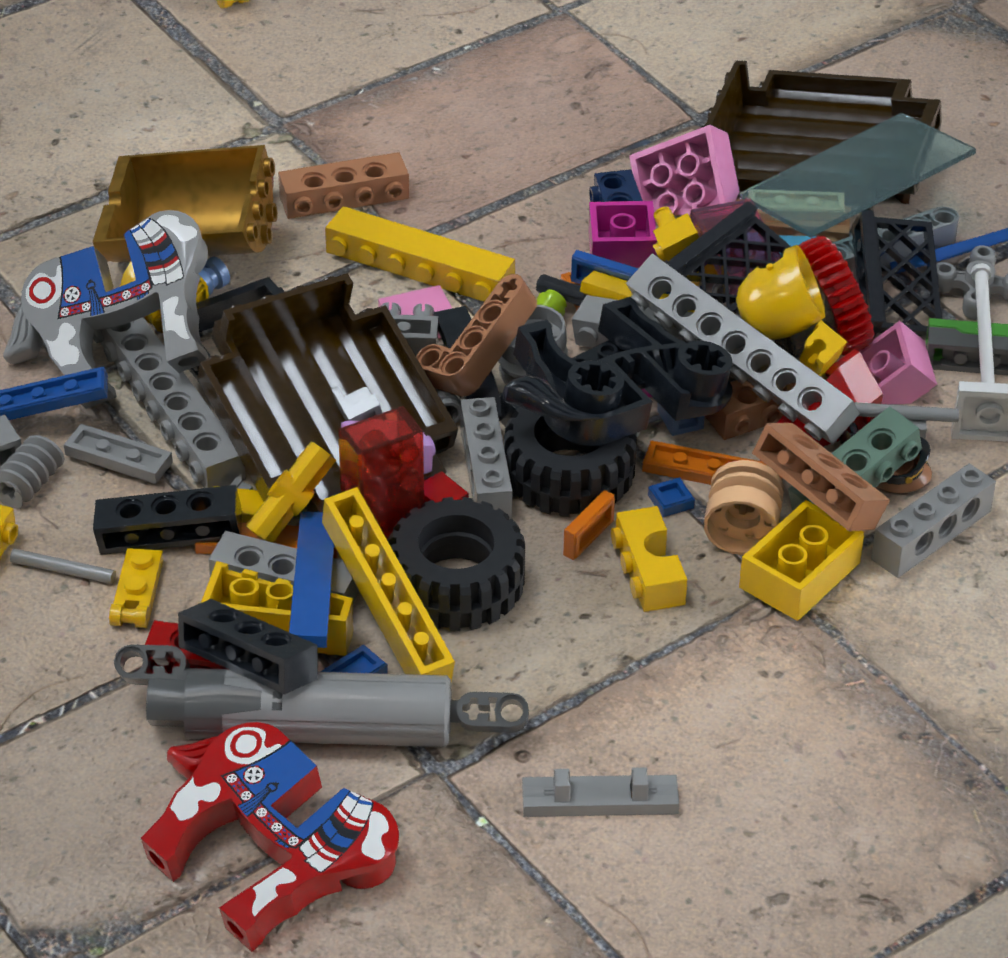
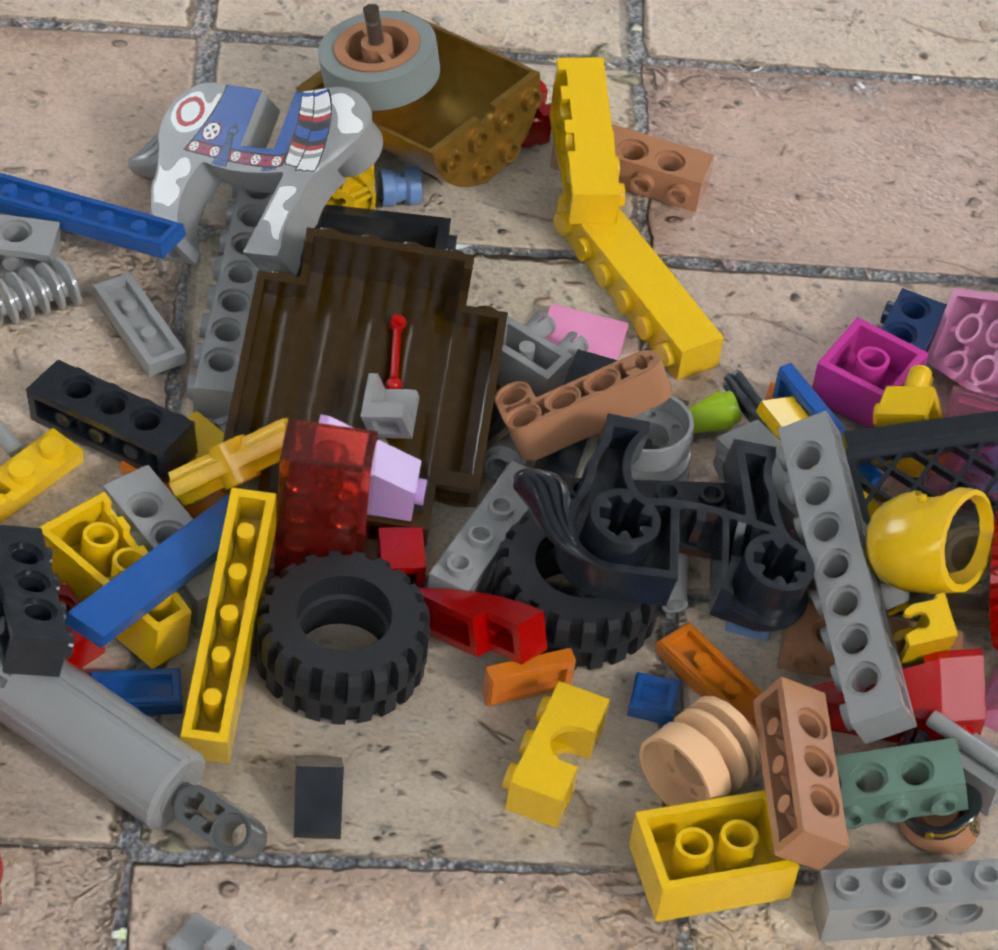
camera: 30 degrees right, 5 degrees up
(145, 184) = (381, 56): none -> wheel
(313, 352) = (396, 324): none -> red hinge
(320, 180) = (585, 141): none -> yellow wedge
(527, 667) = (318, 797): none -> black slope
(545, 501) = (486, 623): none -> red slope

